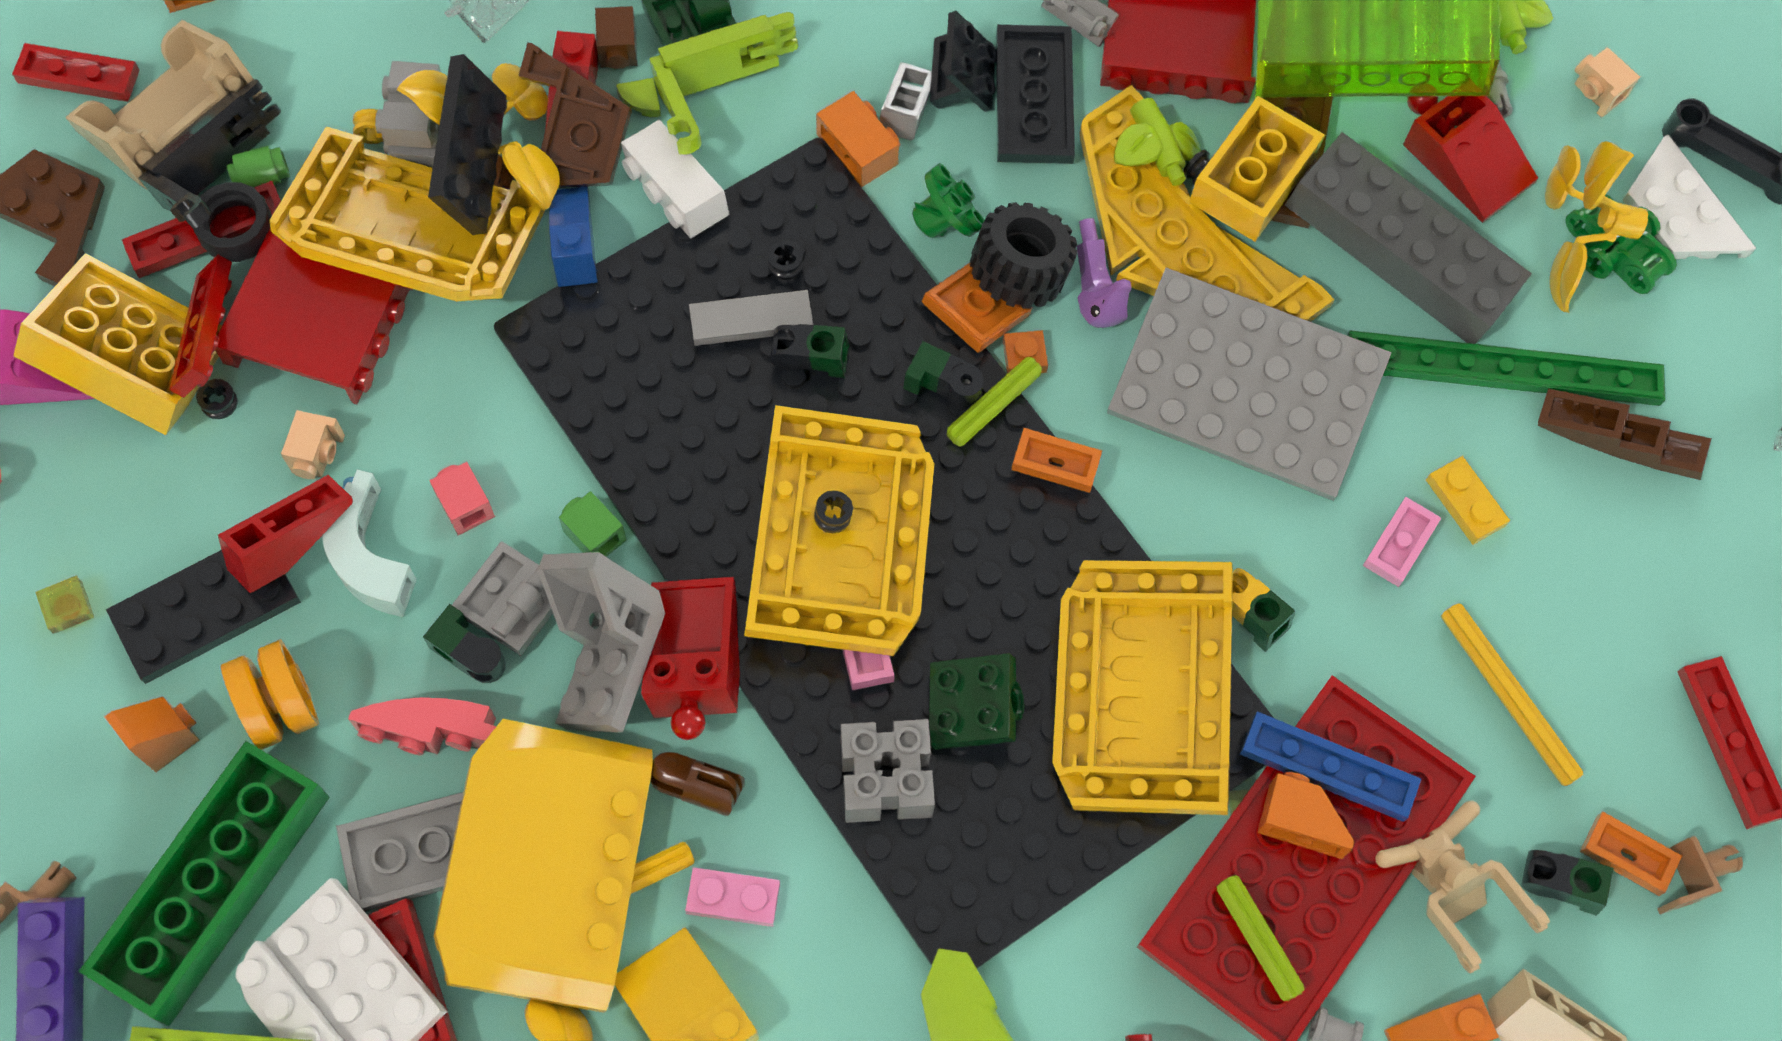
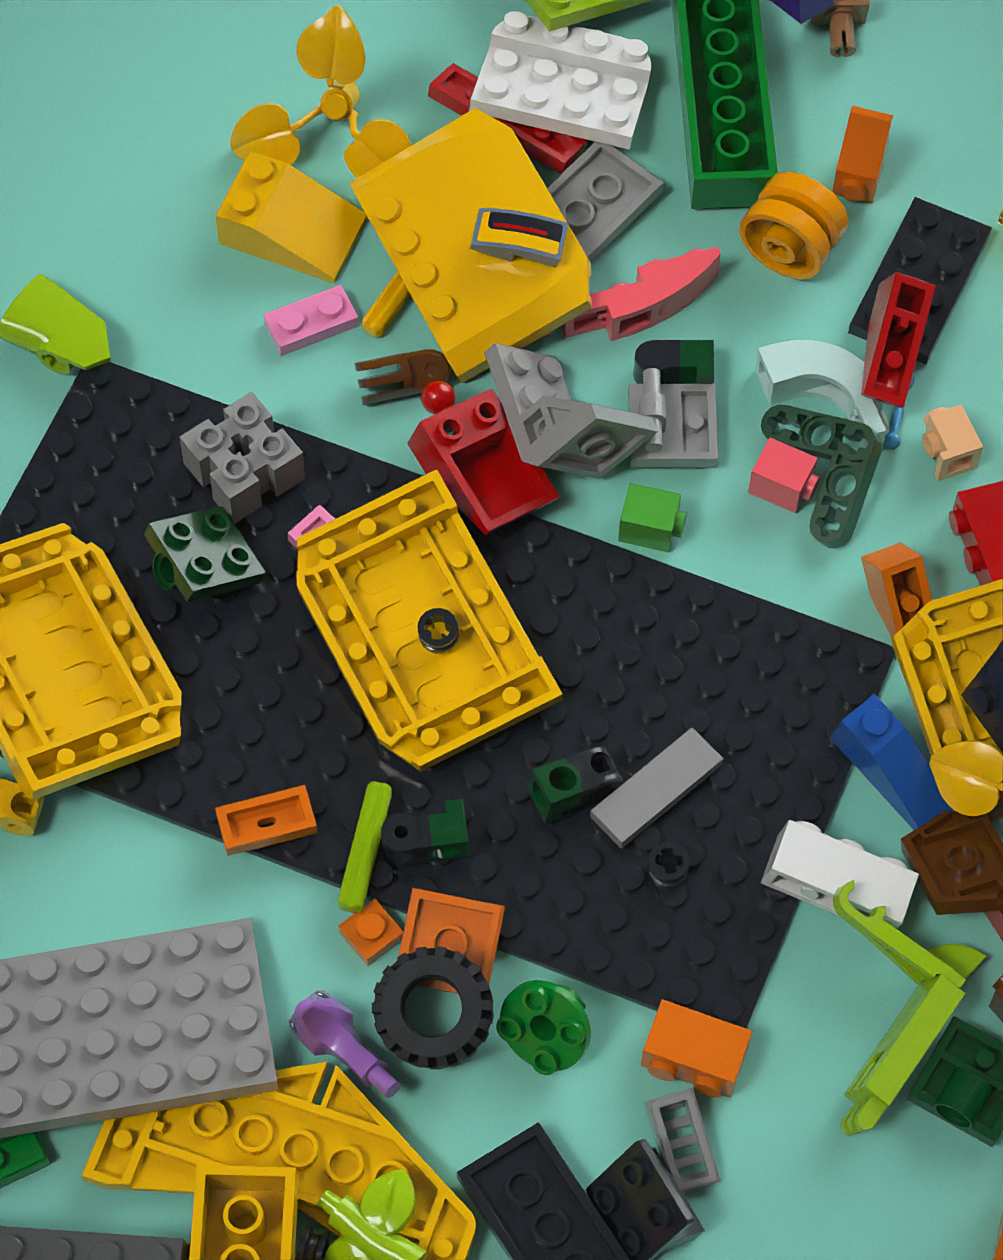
camera: 150 degrees right, 5 degrees down
(409, 469) = (843, 462): none -> dark green beam
(454, 353) = (896, 584): none -> orange slope
(518, 804) = (518, 233): none -> slope

